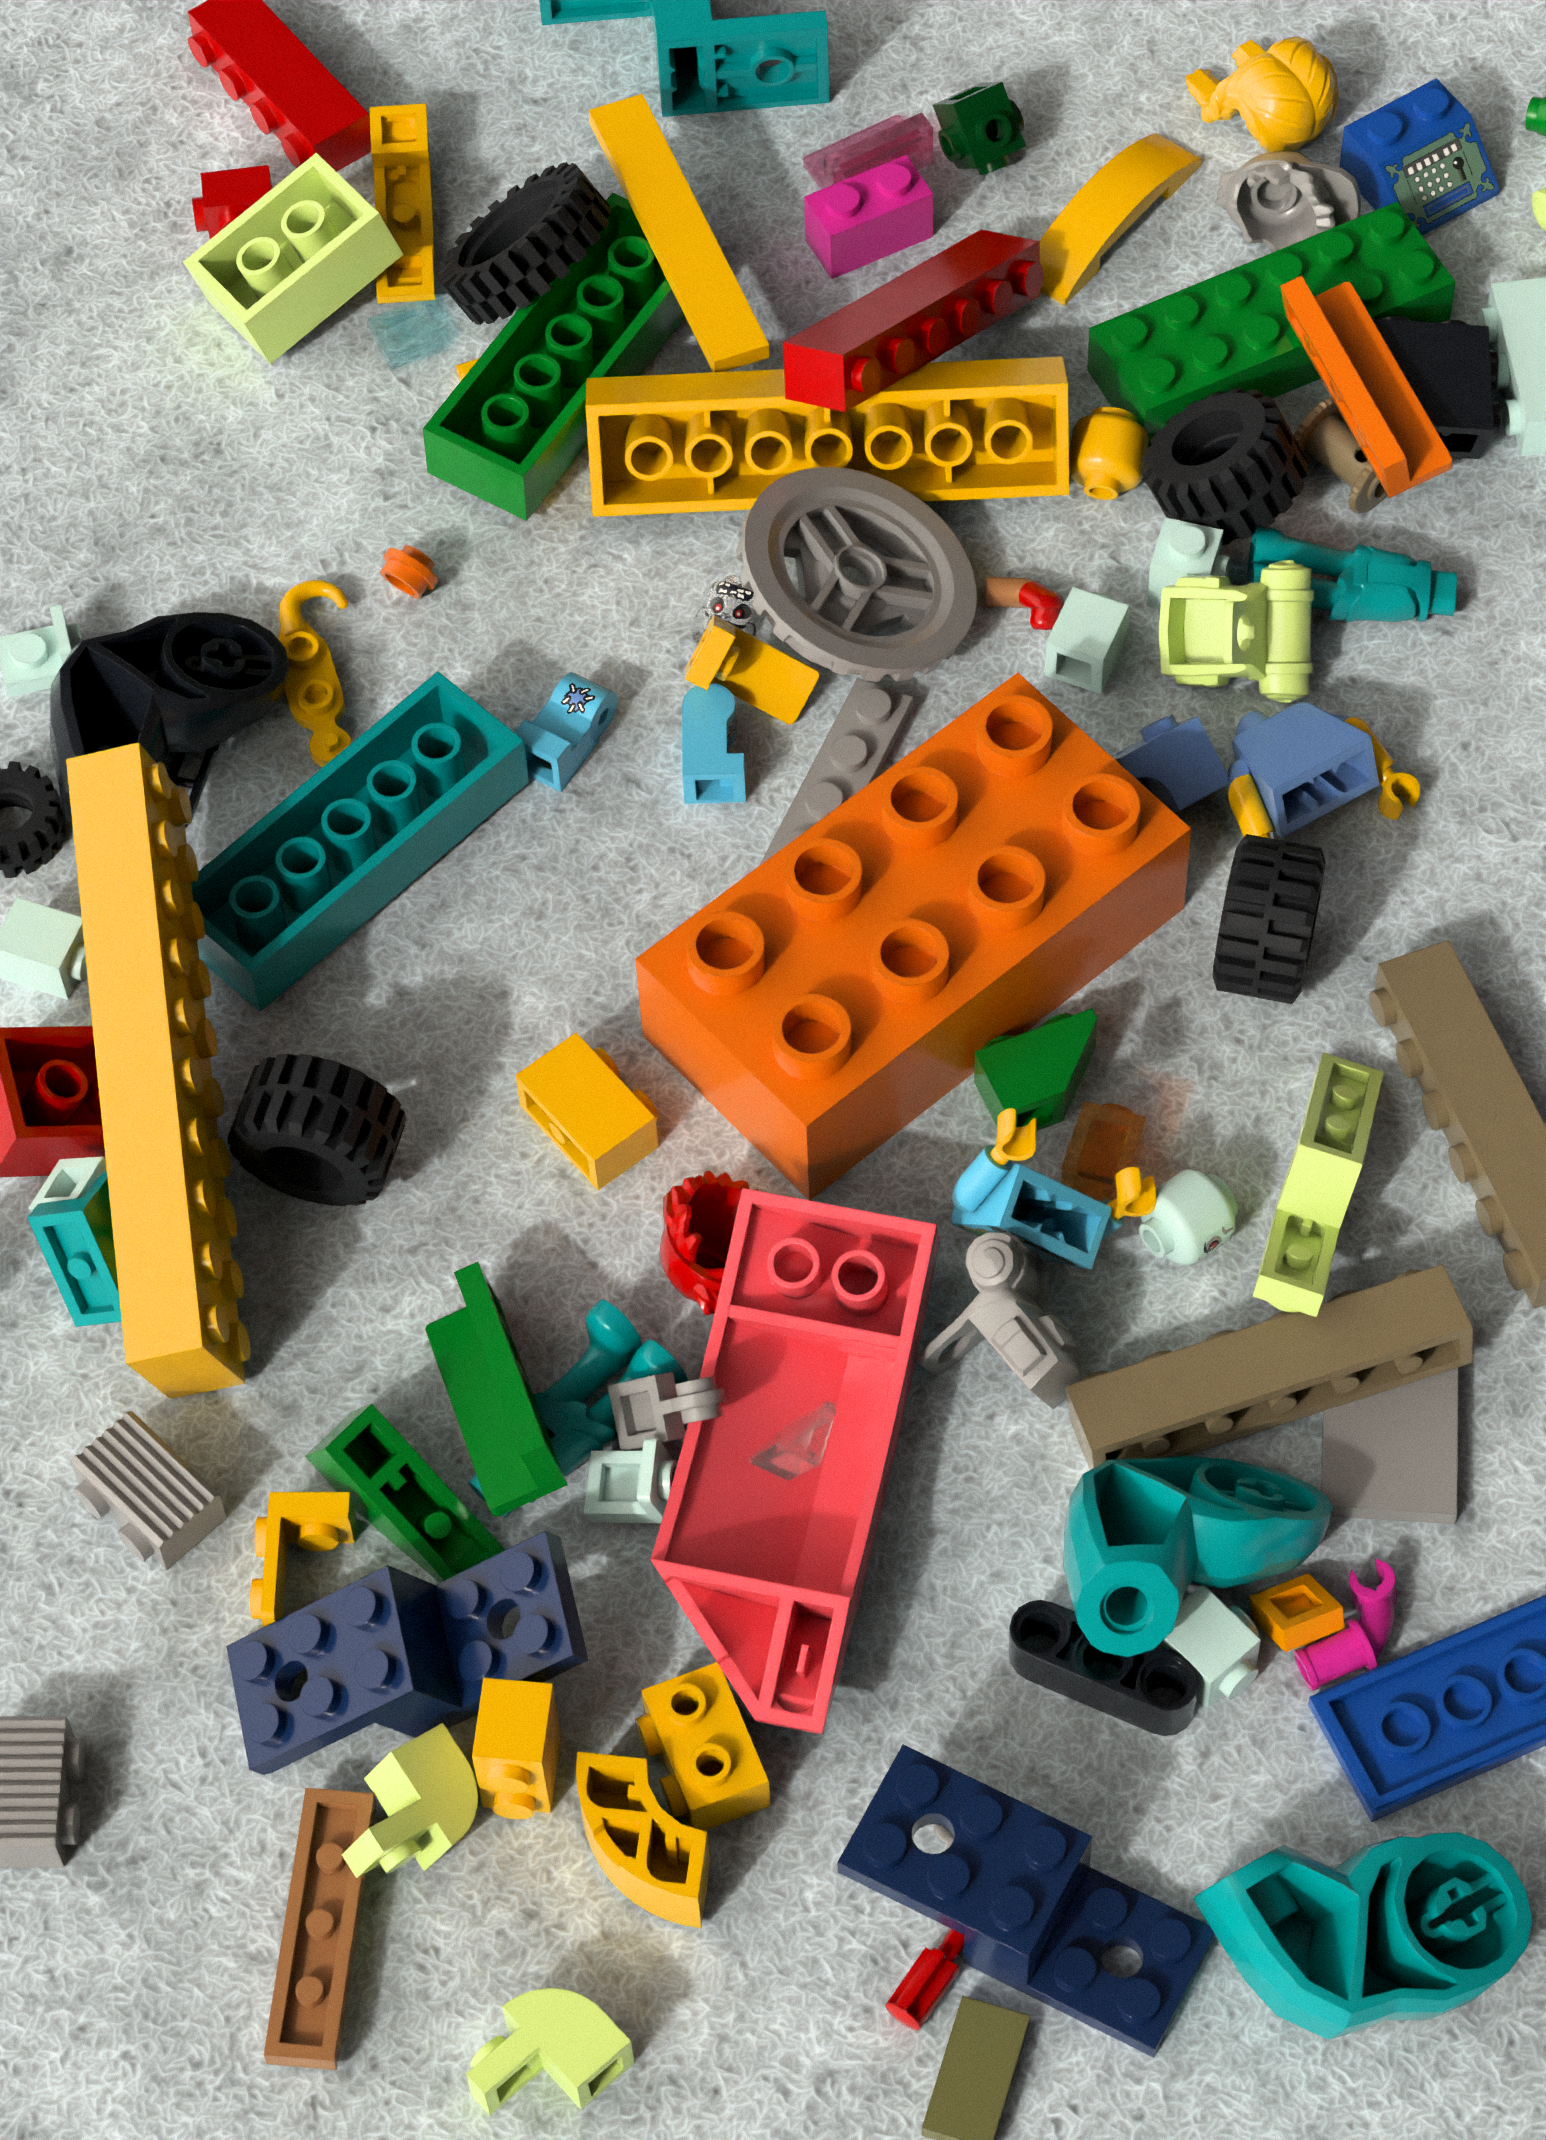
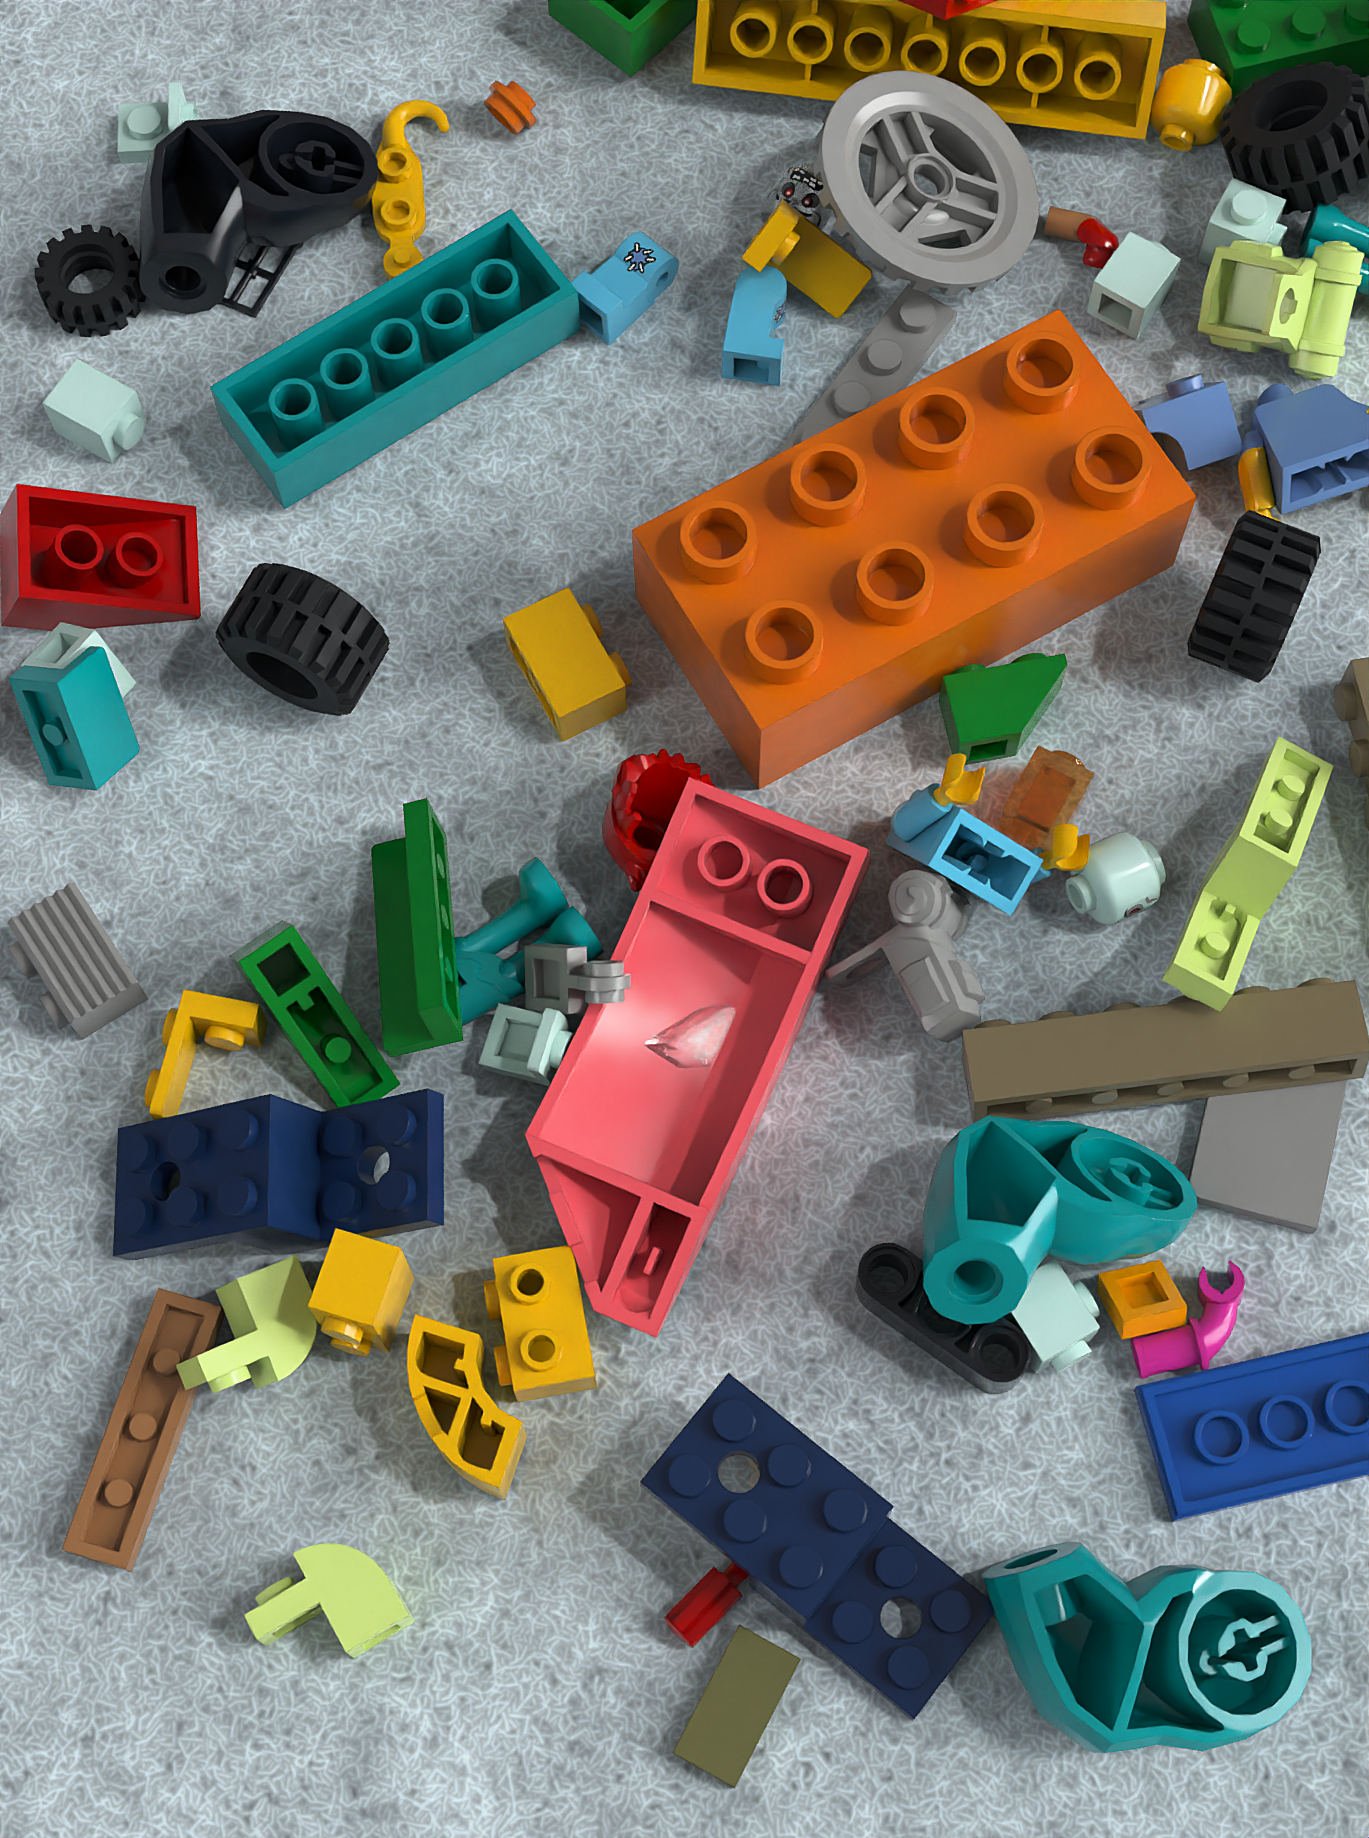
camera: 10 degrees right, 10 degrees up
(156, 1074) = (158, 556): yellow brick -> none

